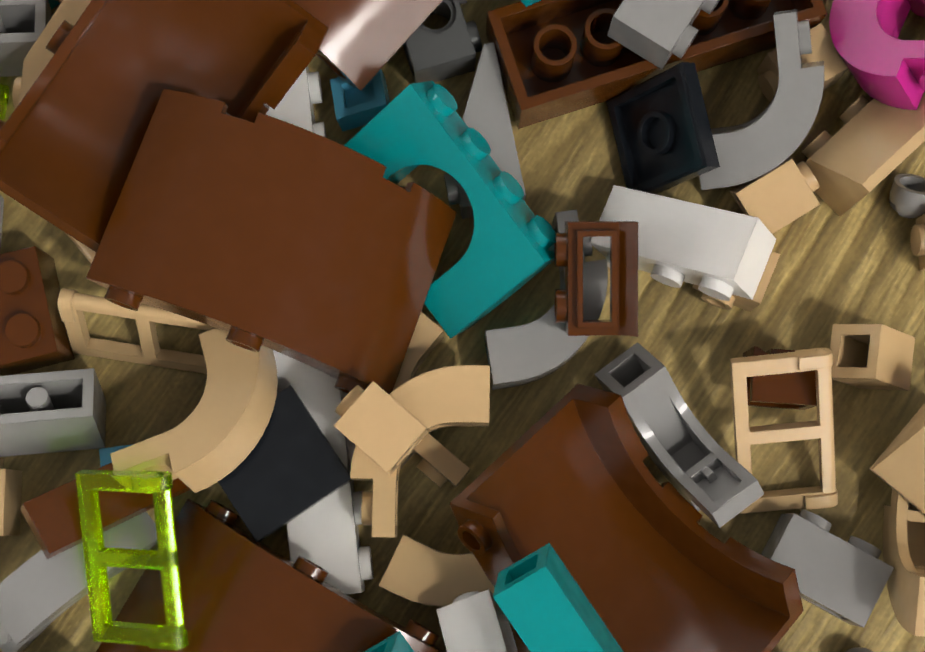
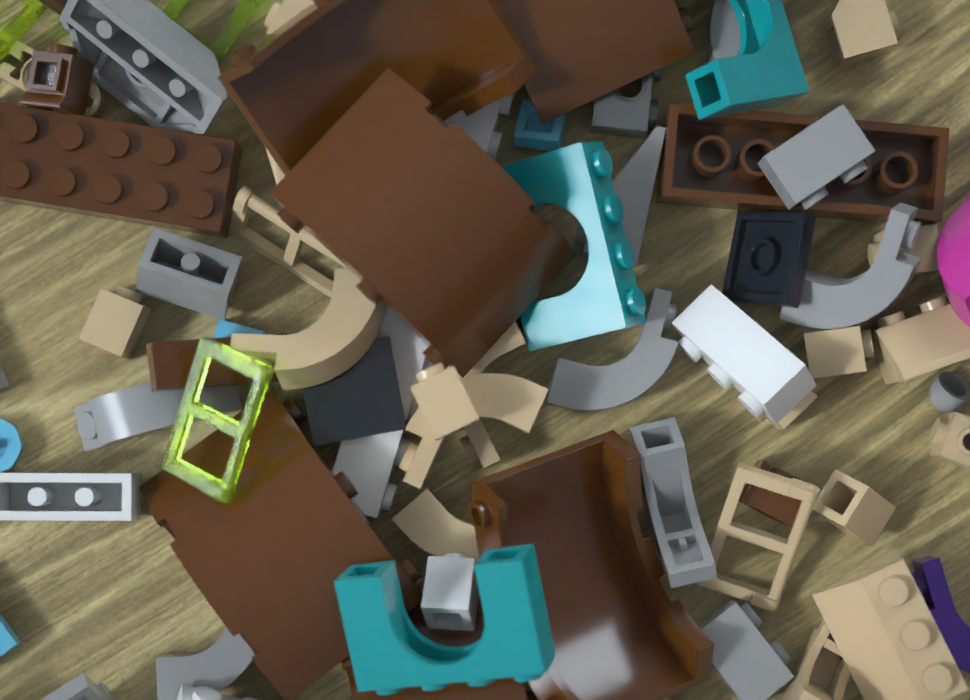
camera: 25 degrees right, 5 degrees up
(623, 278) = (682, 362): reddish brown window -> none

